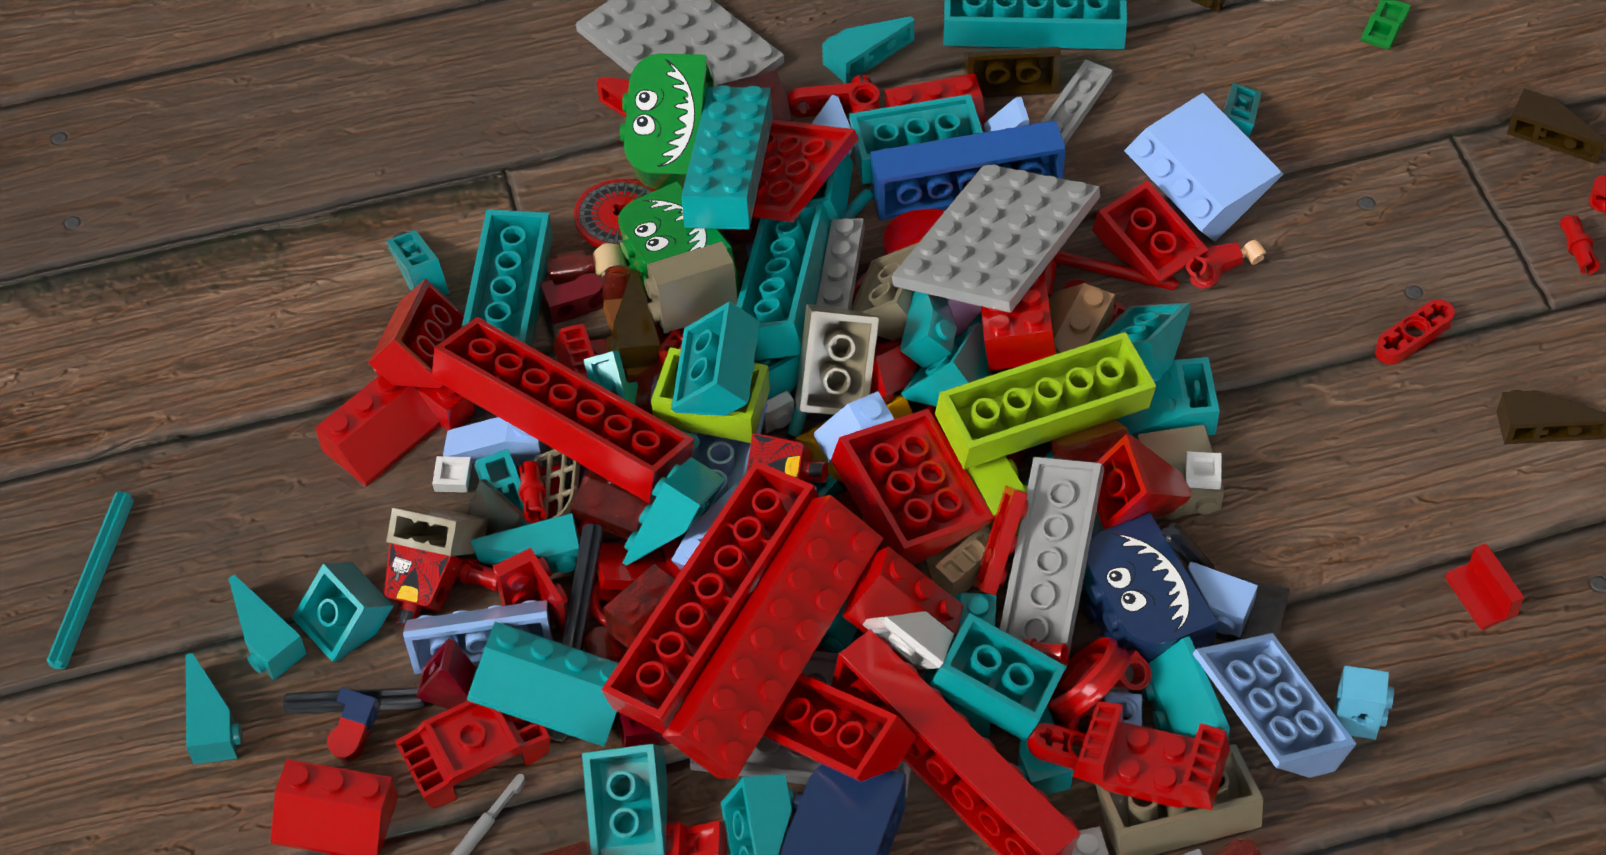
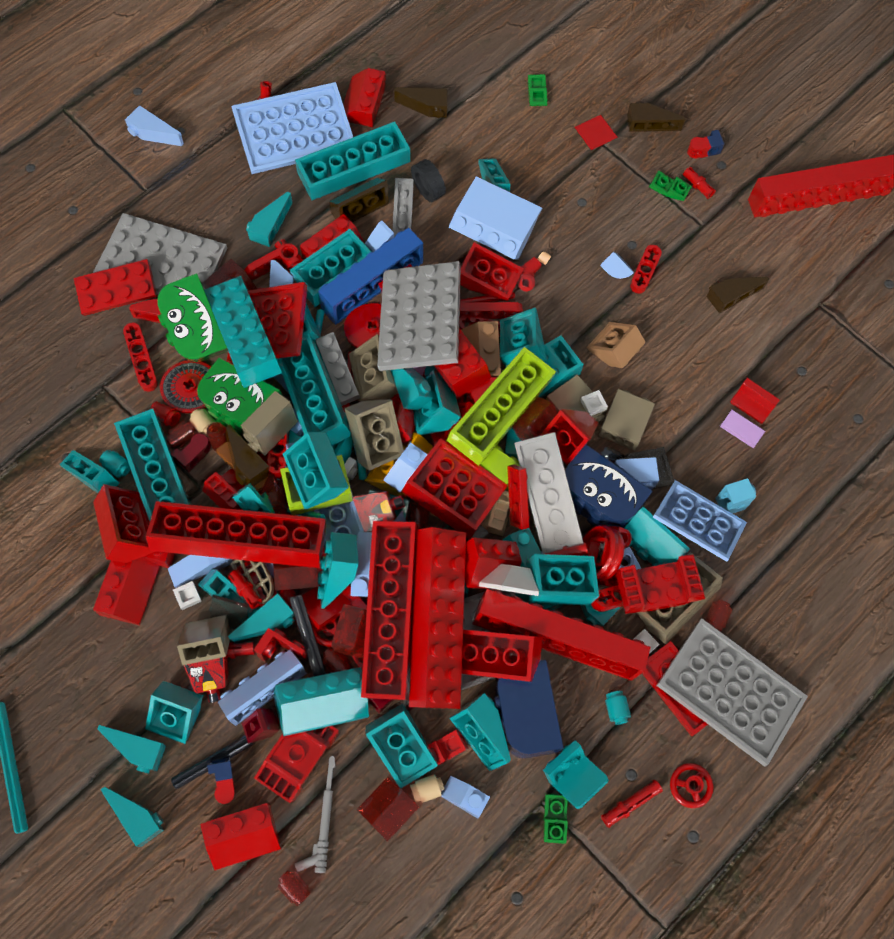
camera: 35 degrees left, 15 degrees up
(457, 266) = (114, 463): none -> teal brick
(566, 234) = (167, 414): none -> red cone
(579, 151) = (140, 356): none -> red beam
(592, 47) = (115, 287): none -> red plate
(1076, 267) = (490, 310): none -> red beam
(1130, 77) = (428, 180): none -> black tyre
(1250, 524) = (627, 419): none -> dark tan brick
(1300, 415) = (617, 344): none -> medium nougat slope
(1366, 307) = (616, 266): none -> light blue brick
(1440, 620) = (742, 429): none -> lavender tile
(1449, 115) = (595, 132): none -> red sticker
(1530, 237) = (671, 188): none -> green slope

